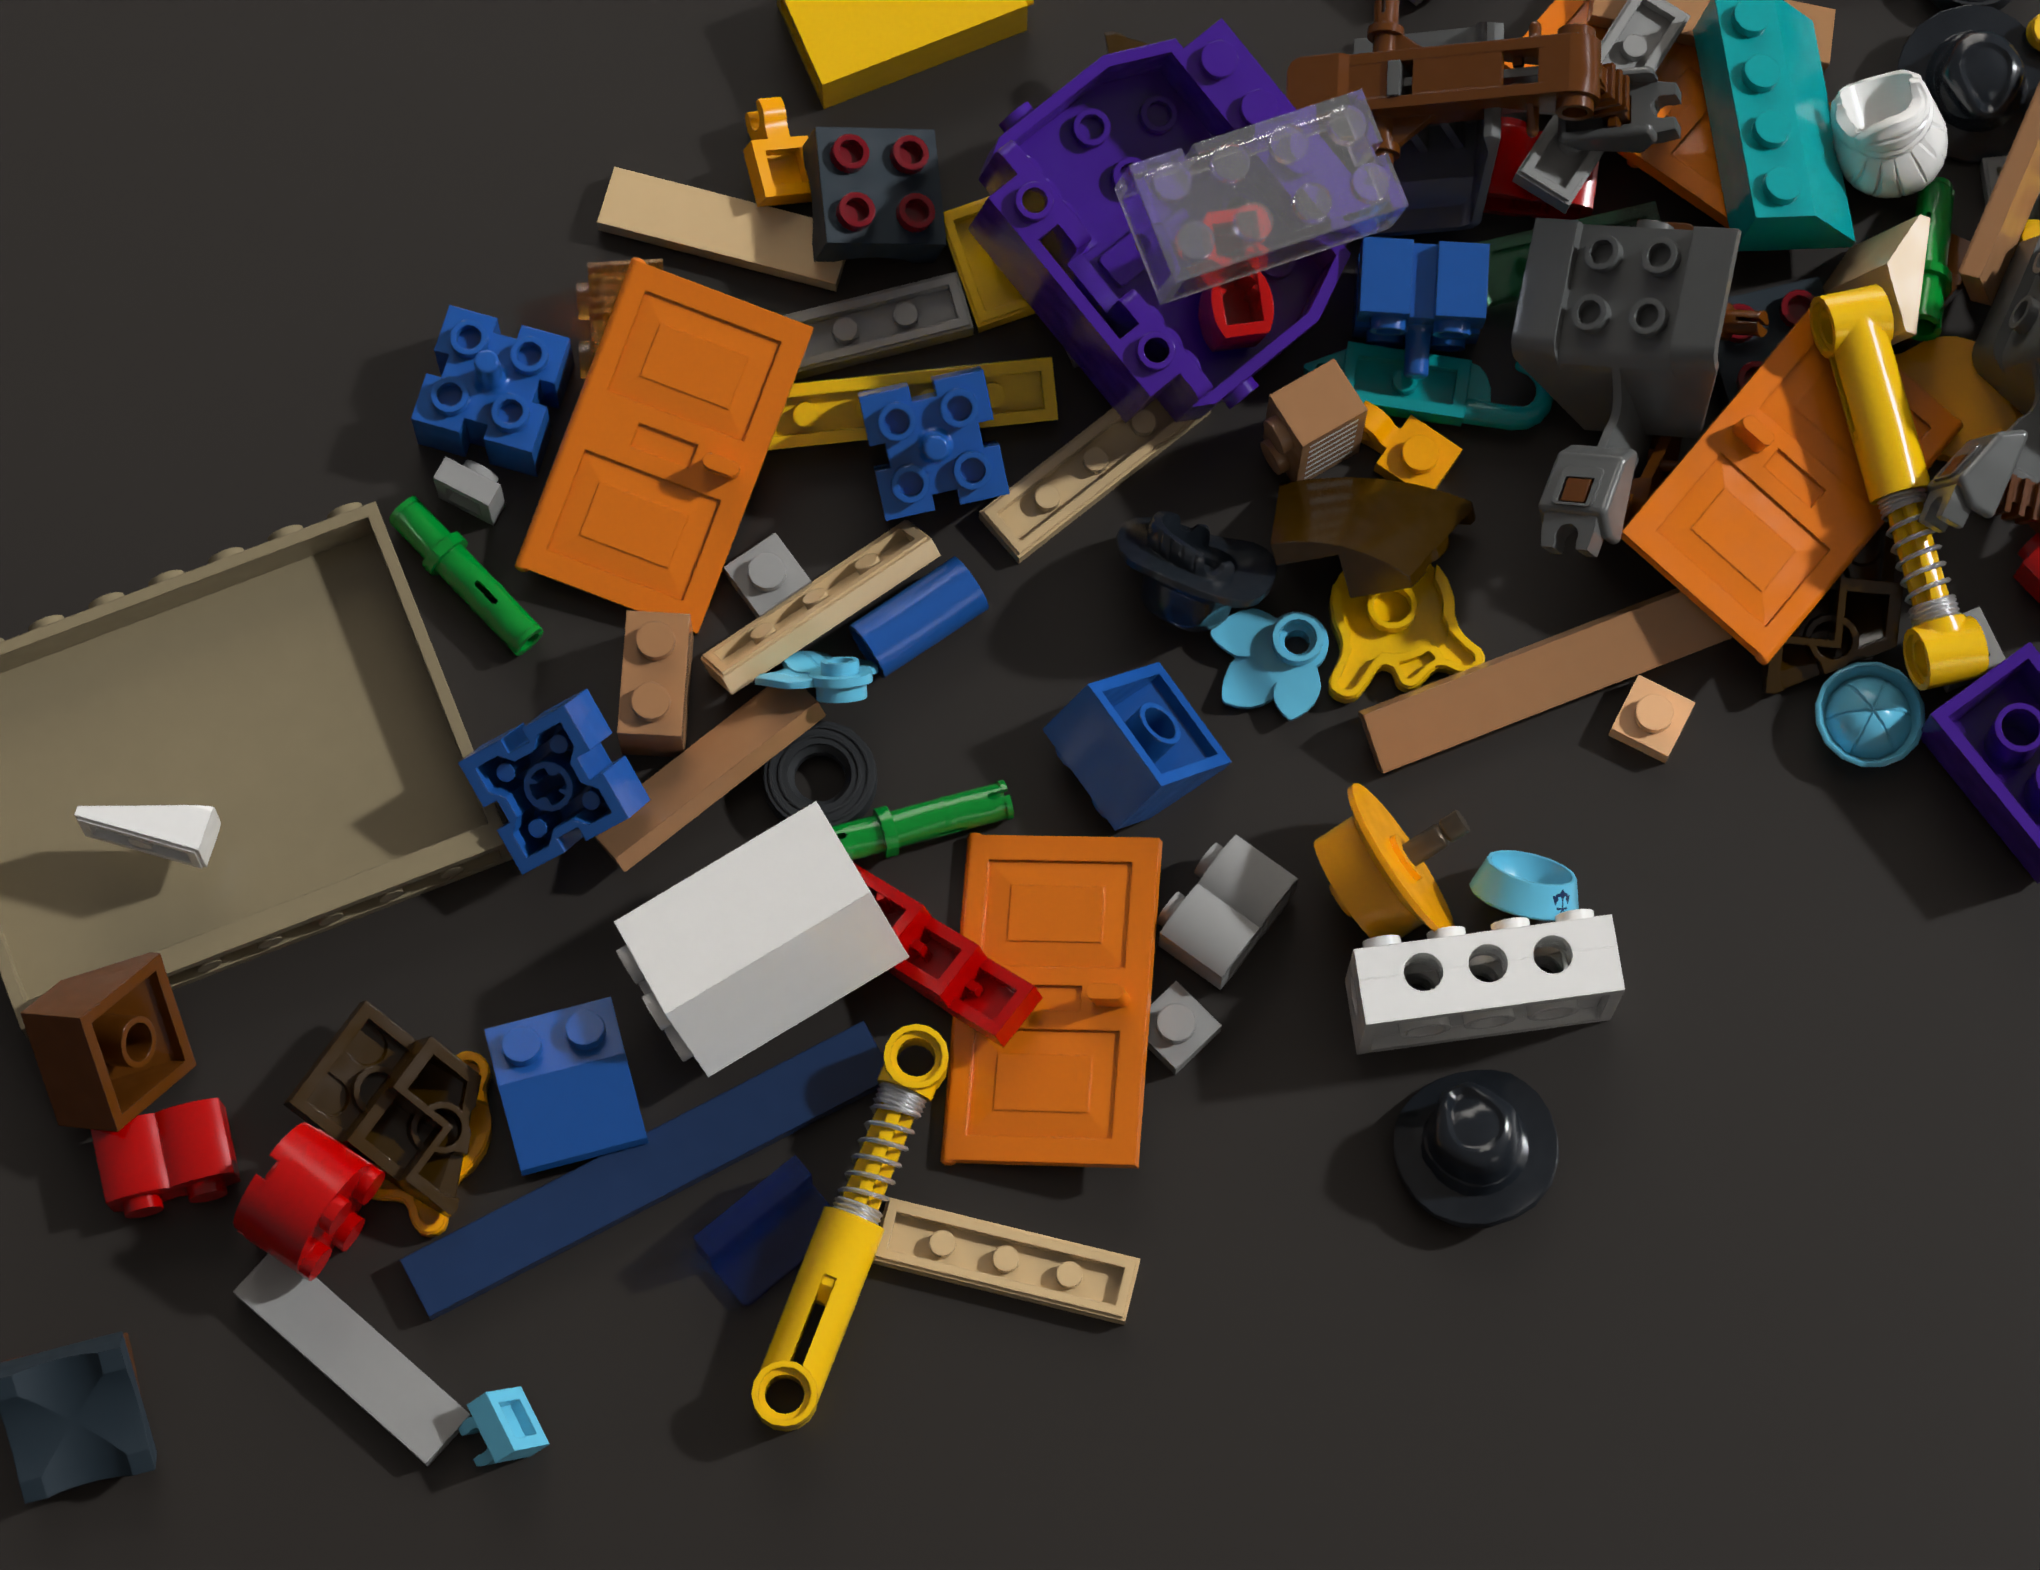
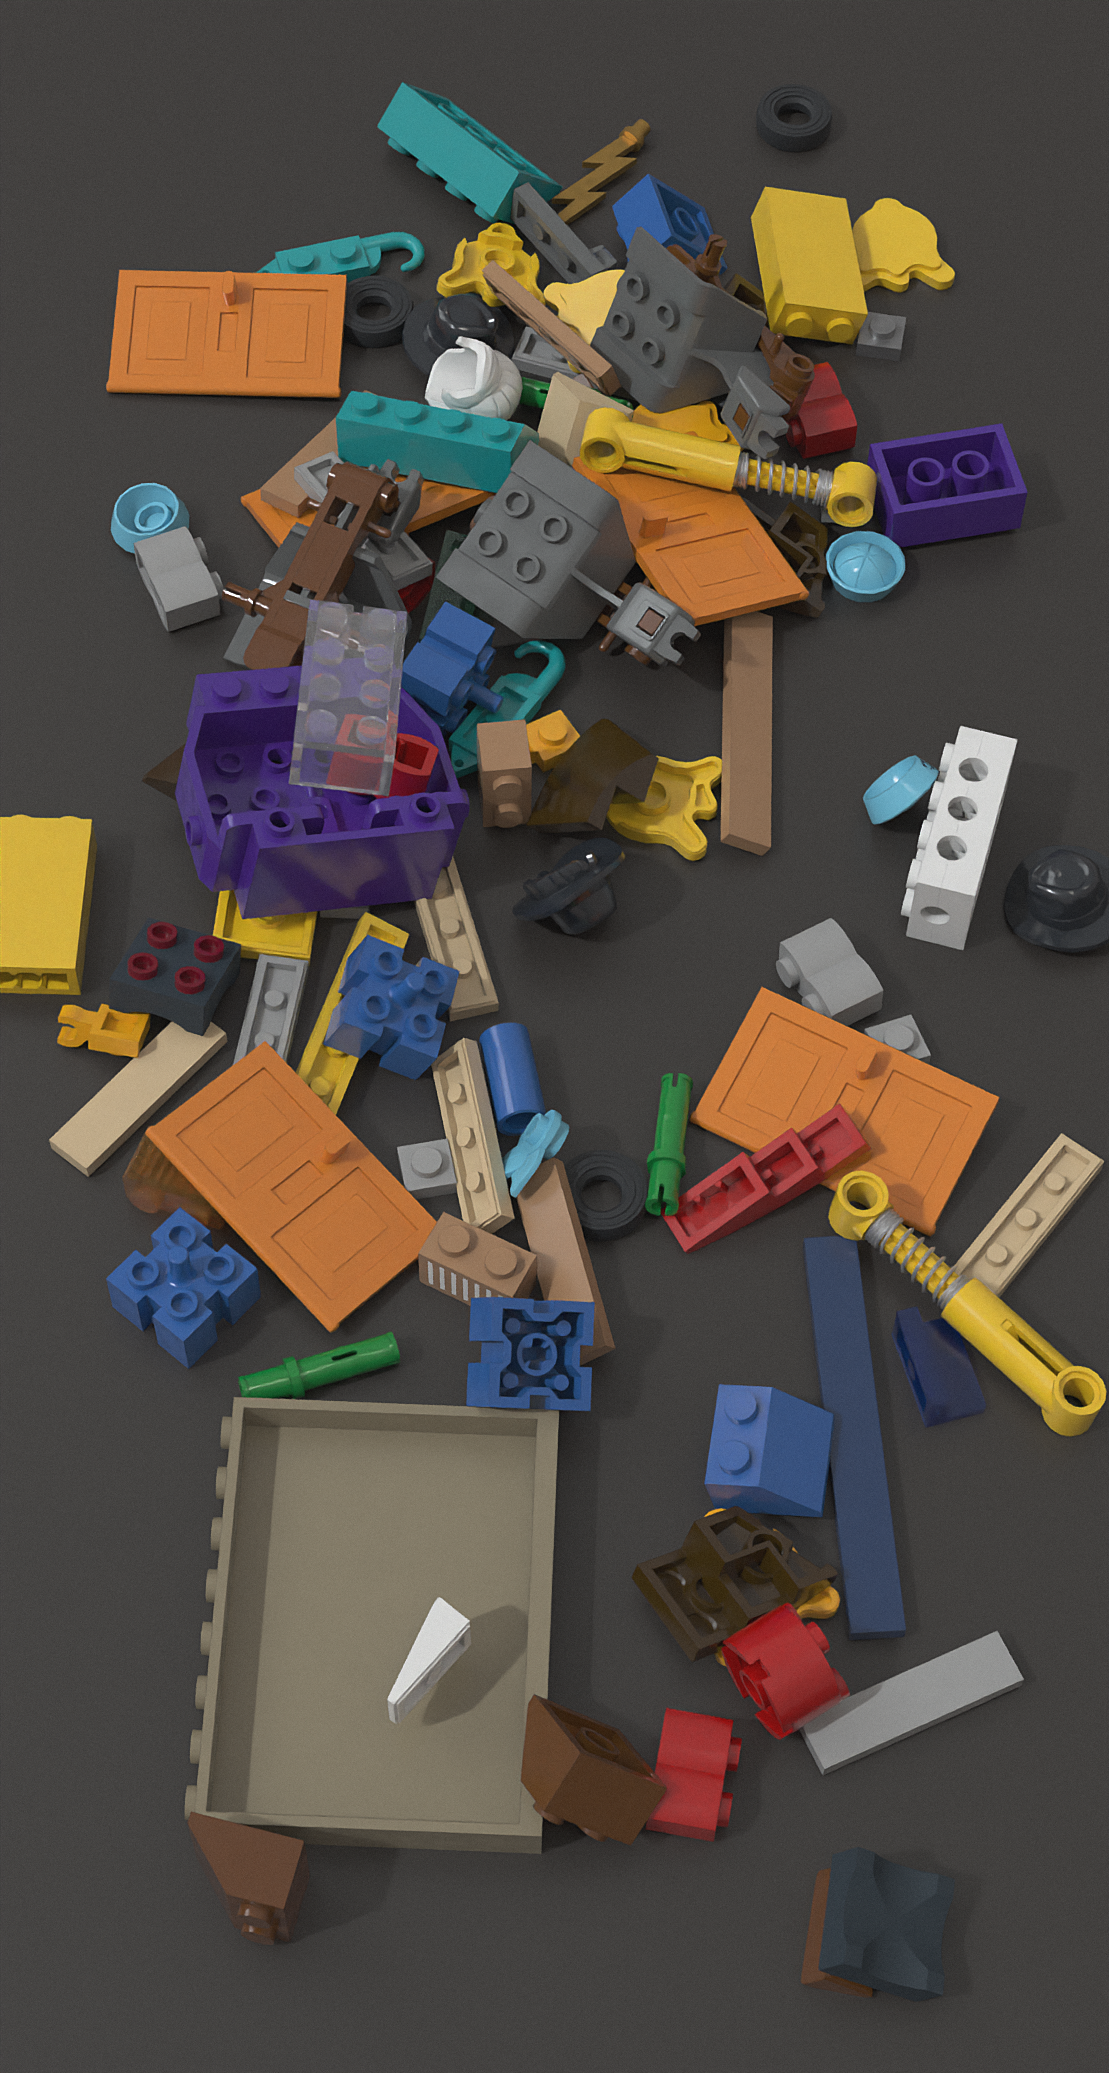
camera: 65 degrees left, 15 degrees down
(470, 489) = (253, 1336): light grey plate -> none
(506, 1426) = (1016, 1606): medium azure tile -> none
(757, 941) = (727, 1258): white brick -> none
(1135, 744) = (680, 985): blue slope -> none
(1265, 667) = (656, 886): medium azure plate -> none
(1382, 873) = (855, 859): light orange piece -> none
(1651, 718) = (805, 685): light nougat plate -> none

